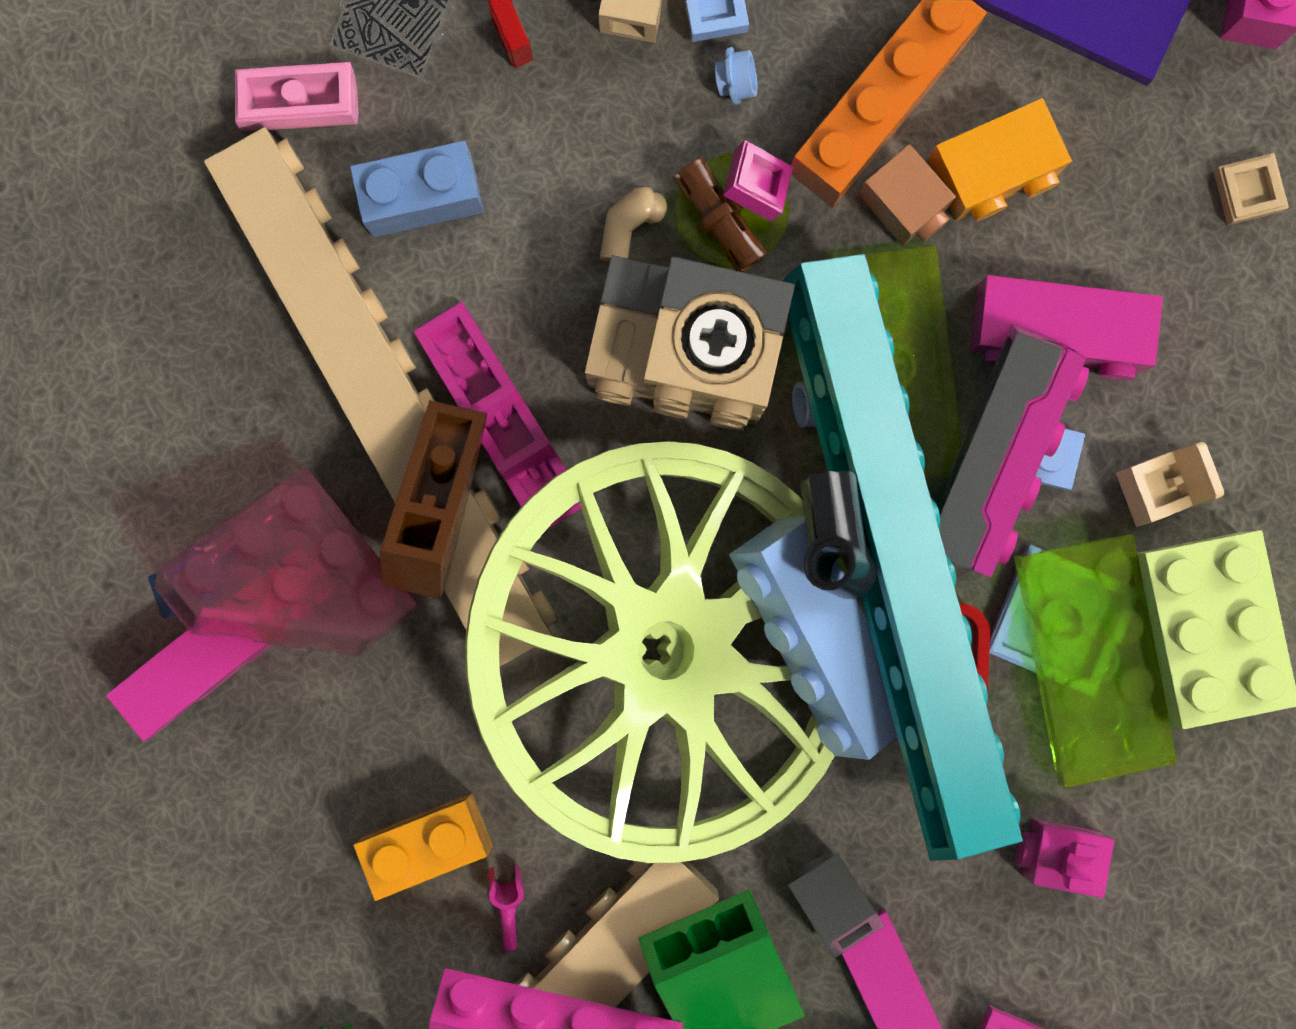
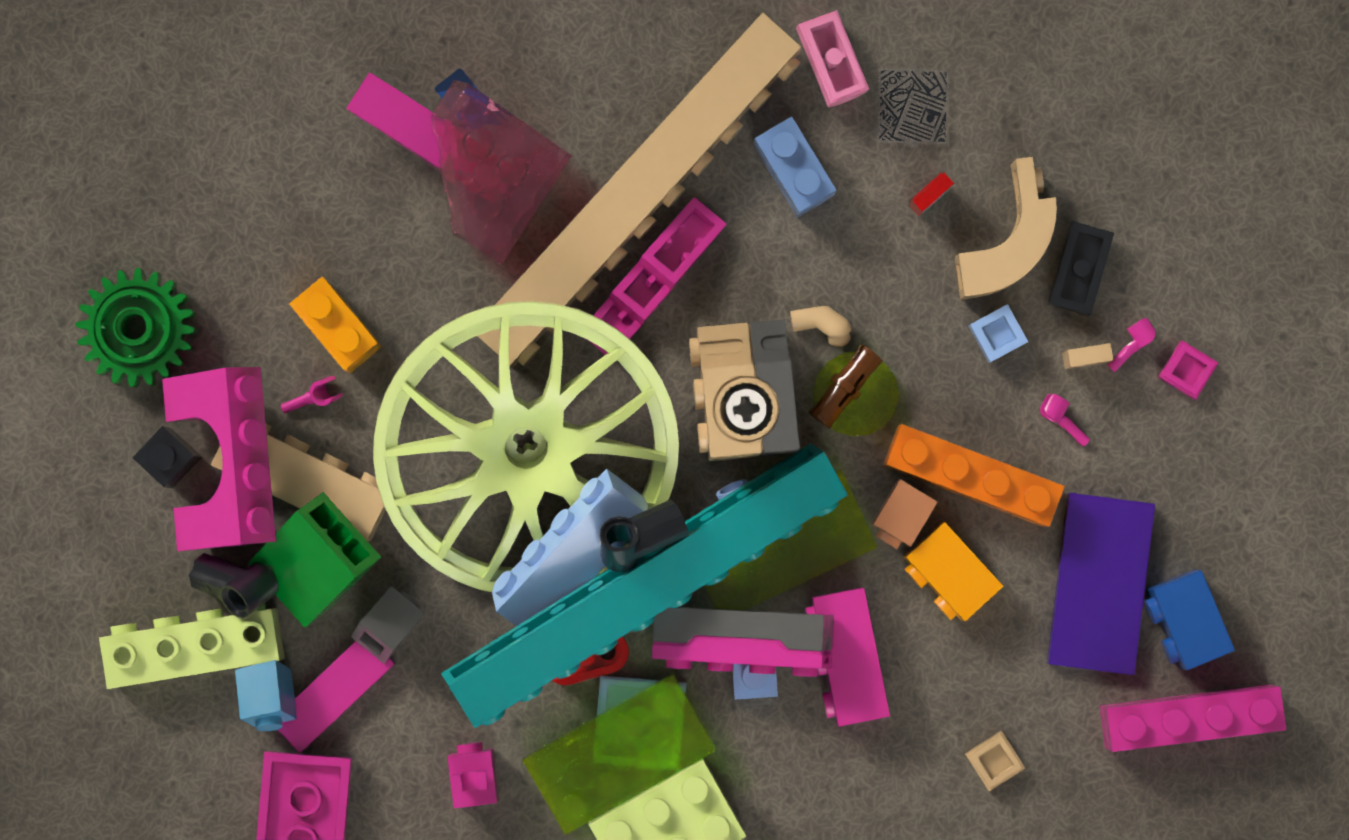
camera: 70 degrees right, 0 degrees up
(432, 500) = (577, 252): reddish brown slope -> none
(736, 75) = (952, 366): light blue plate -> none
(758, 181) = (878, 404): dark pink tile -> none
(1170, 483) = (760, 766): tan bracket -> none

